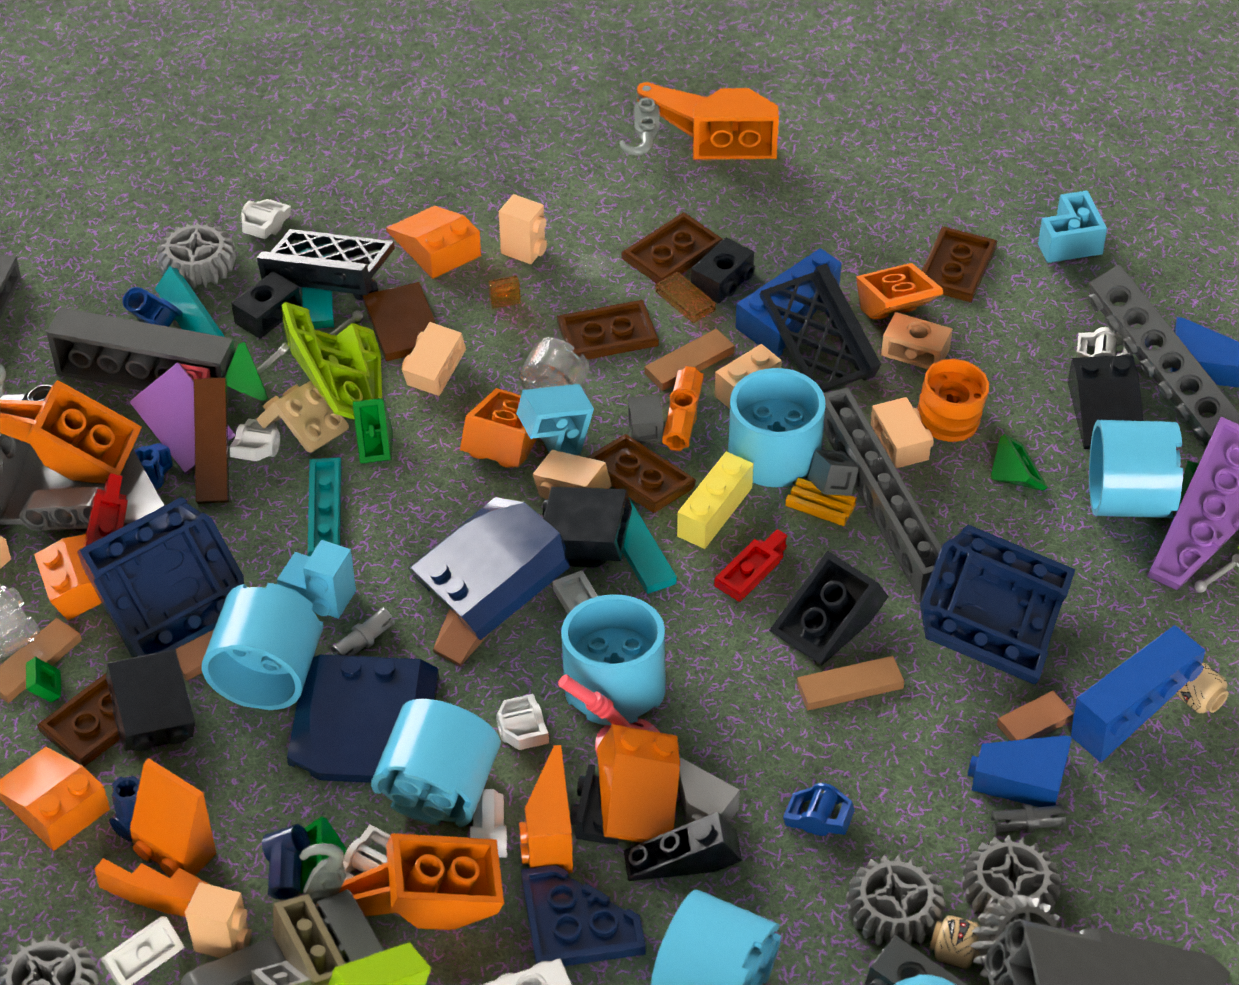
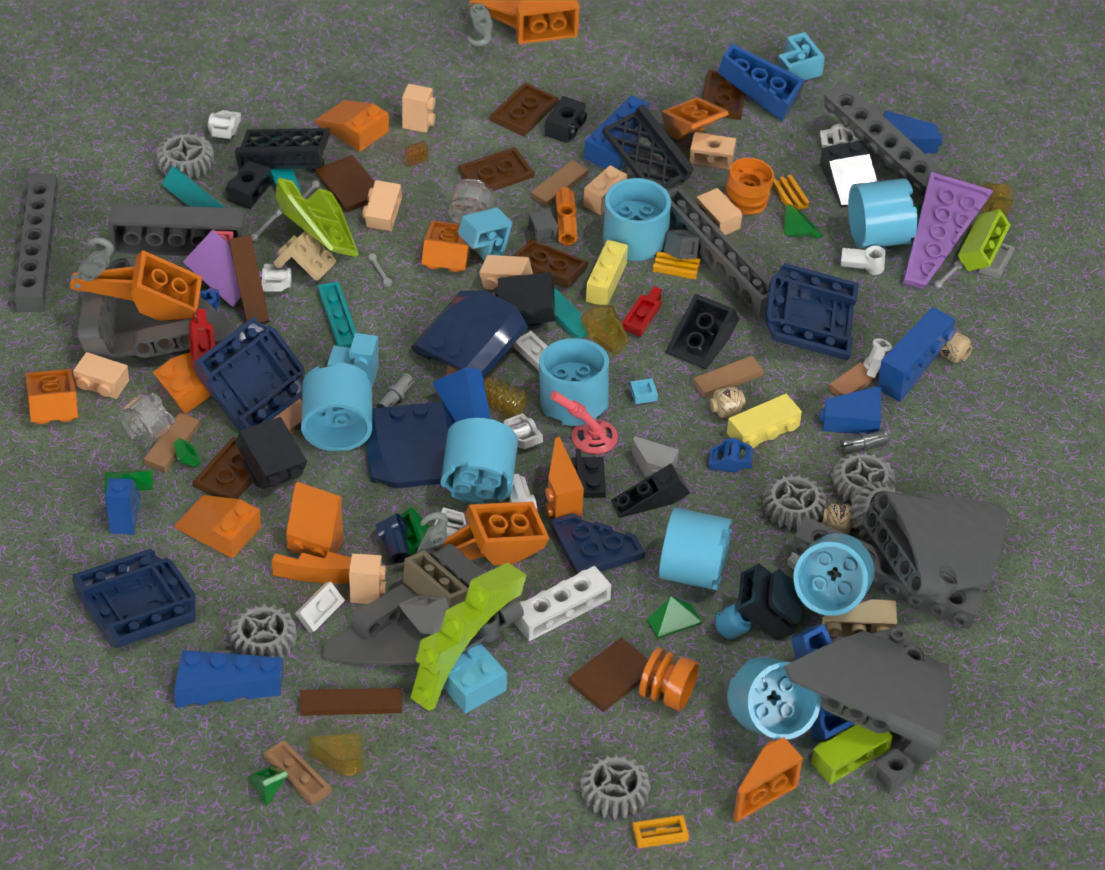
camera: 15 degrees left, 0 degrees up
(124, 800) = (279, 520): dark blue piece -> none
(153, 310) = (170, 196): blue piece -> none
(243, 374) = (257, 231): green slope -> none
(373, 430) = (357, 259): green slope -> none
(408, 467) = (386, 281): none -> light grey hinge
(453, 659) = (464, 394): none -> blue slope
(510, 662) = (503, 397): none -> clear yellow piece
(638, 782) = (611, 454): orange slope -> none
(685, 297) = (543, 141): clear orange tile -> none
(688, 582) = (605, 327): none -> clear yellow slope
(719, 686) = (643, 391): none -> medium azure plate
(836, 723) = (727, 401): none -> tan head
(884, 764) = (765, 421): none -> light yellow brick
(1008, 400) = (788, 184): none -> light orange tile
(1010, 251) = (761, 80): none -> blue wedge
(1083, 677) = (879, 351): none -> white piece
(1106, 533) = (870, 259): none -> white piece

